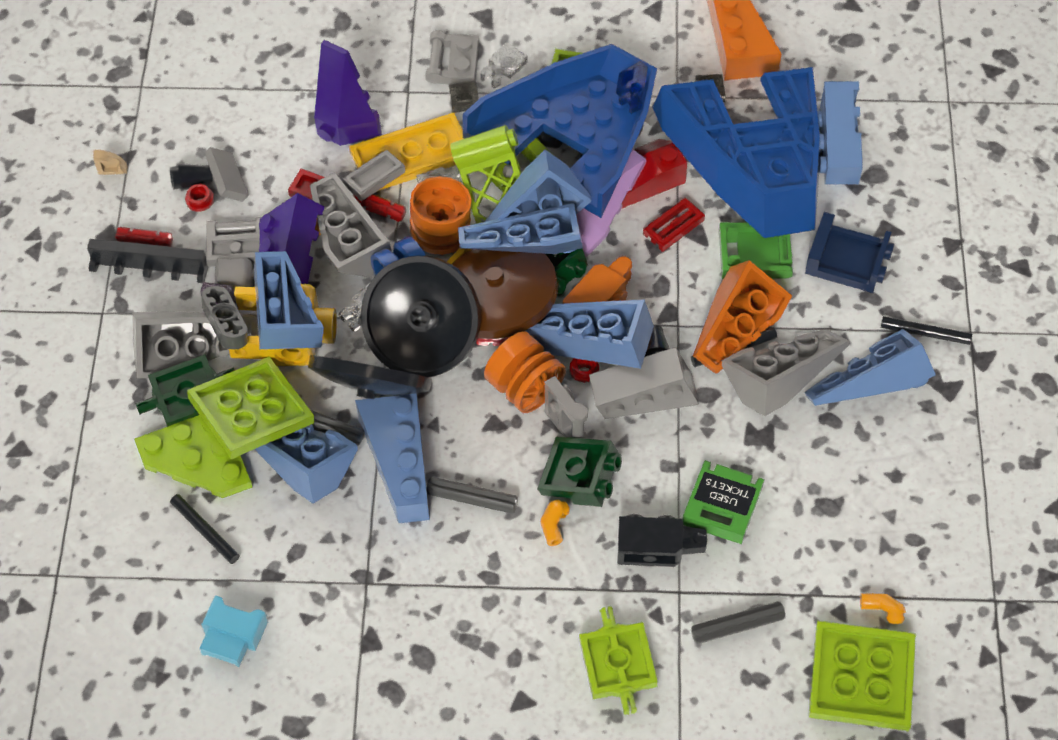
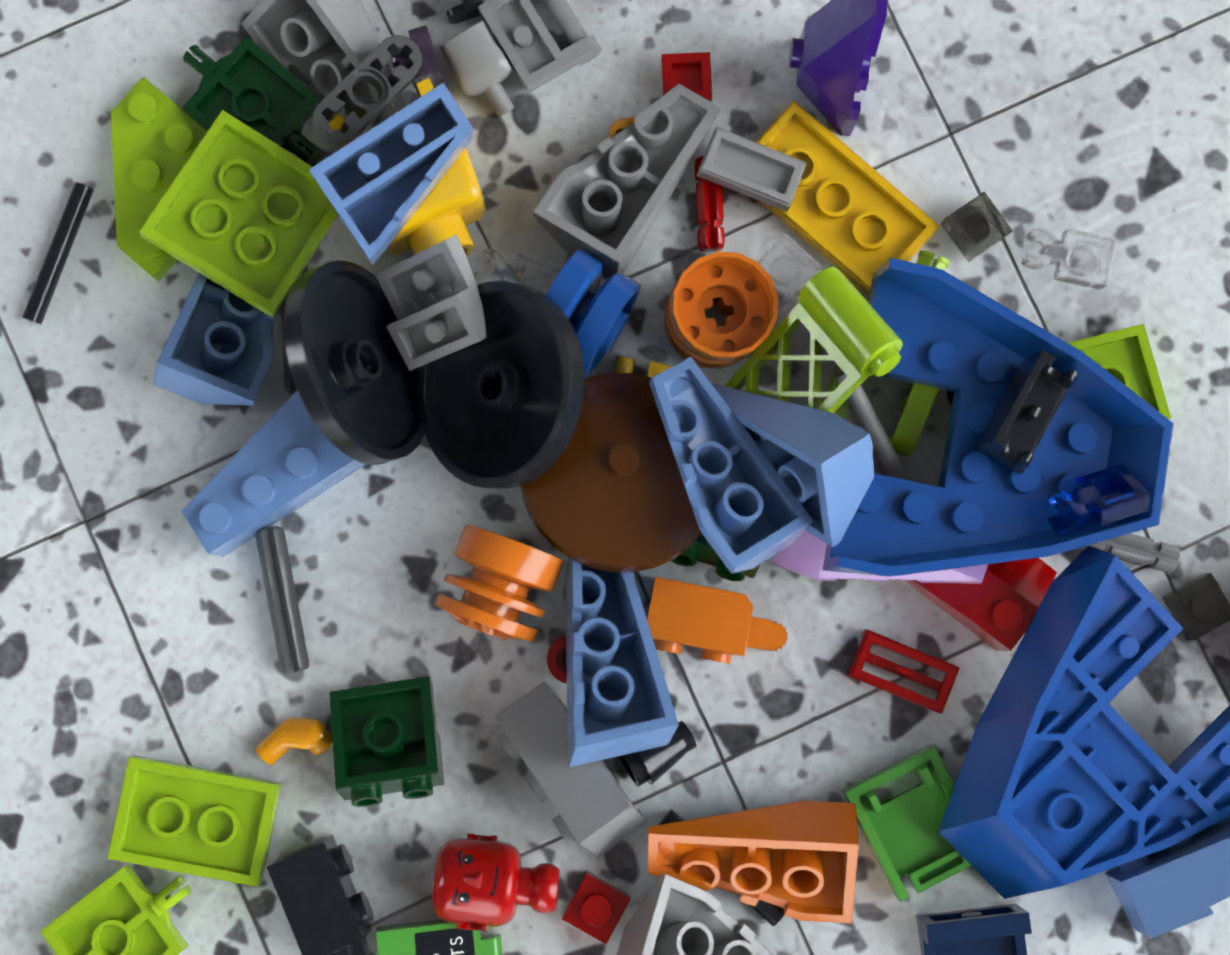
camera: 60 degrees right, 25 degrees up
(291, 230) = (545, 112): dark purple wedge -> none
(358, 332) = (433, 303): none -> light grey slope
(462, 58) = (1051, 184): light grey plate -> none
(563, 410) = (467, 667): light grey plate -> none
(570, 97) = (1025, 411): none -> black hinge
(572, 589) = (195, 821): none -> lime plate
(684, 449) = (483, 882): none -> red piece
(725, 414) = (596, 907): none -> red plate

